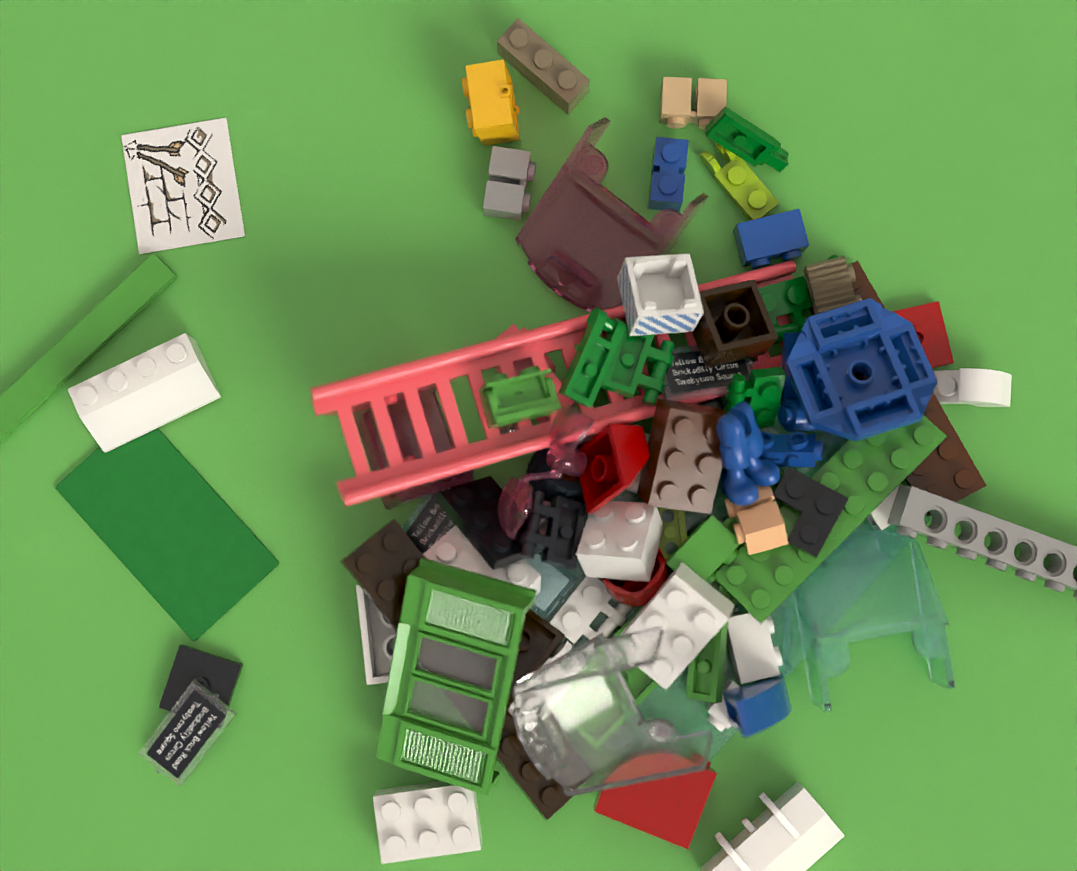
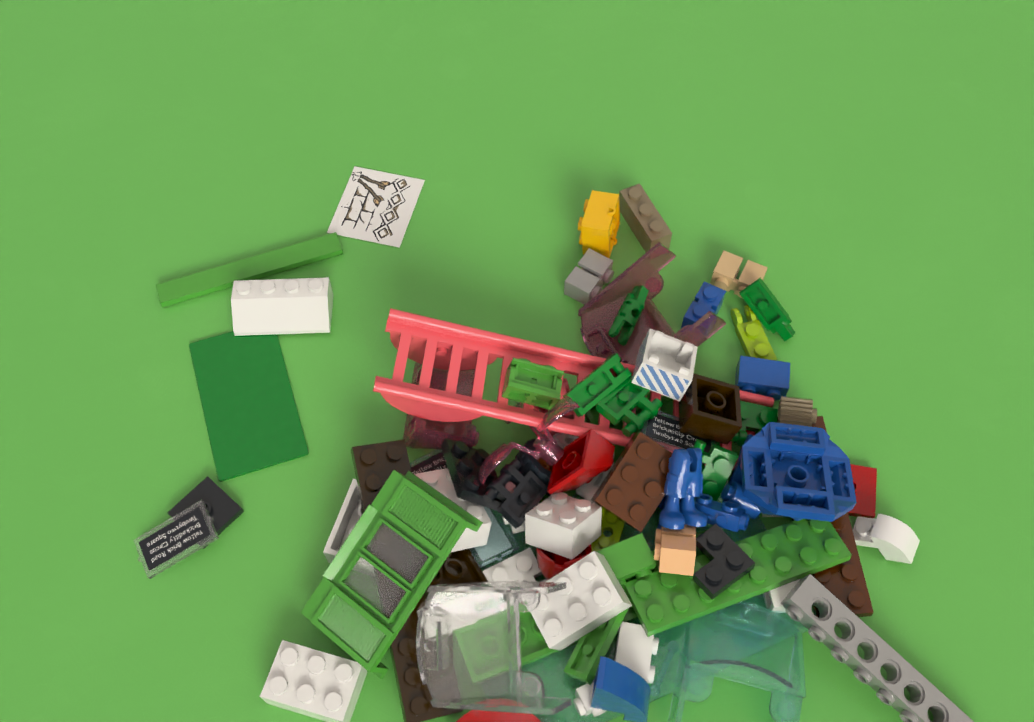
camera: 20 degrees right, 25 degrees down
(580, 221) = (629, 314): none -> green hinge

